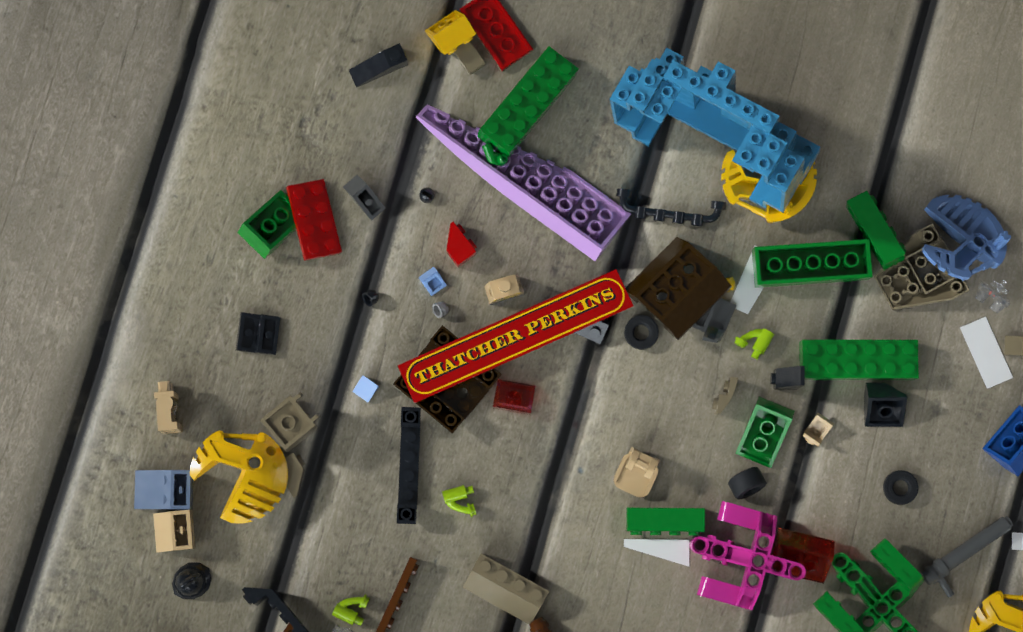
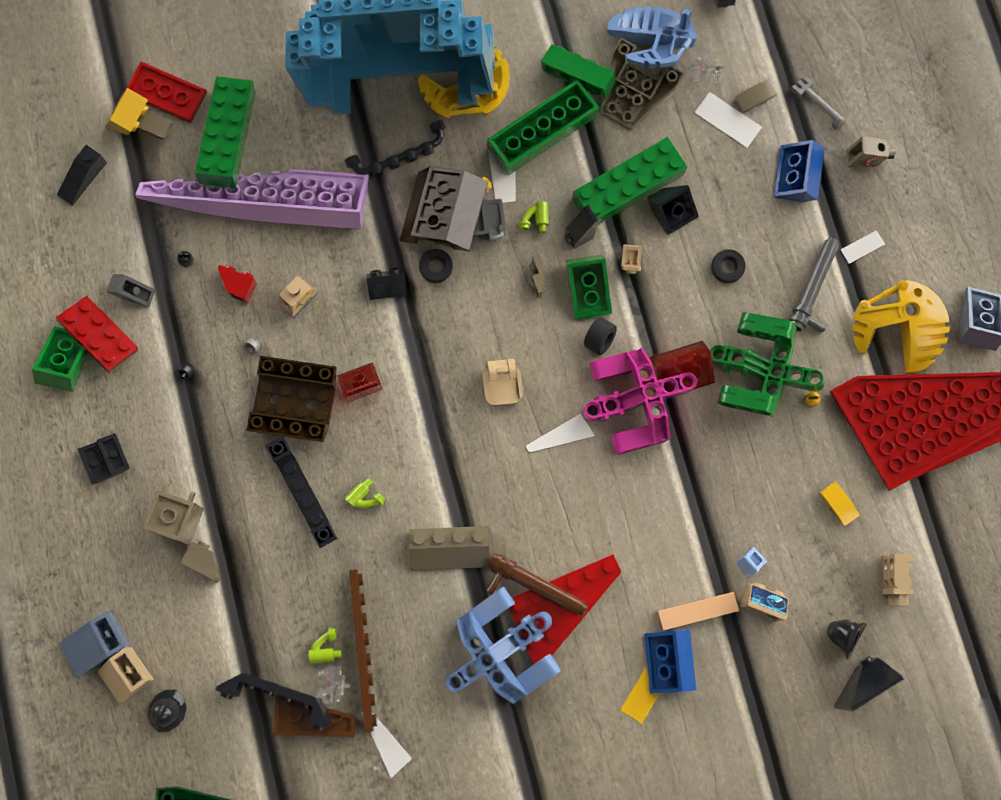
camera: 30 degrees left, 5 degrees down
(166, 408) = (56, 571): tan hips -> none
(256, 487) = (175, 590): yellow piece -> none
(365, 388) = (226, 450): light blue slope -> none
(432, 281) = (232, 327): light blue slope -> none
(494, 157) = (221, 191): green arm -> none
(515, 336) = (327, 329): red sticker -> none
(665, 520) = (552, 406): green brick -> none

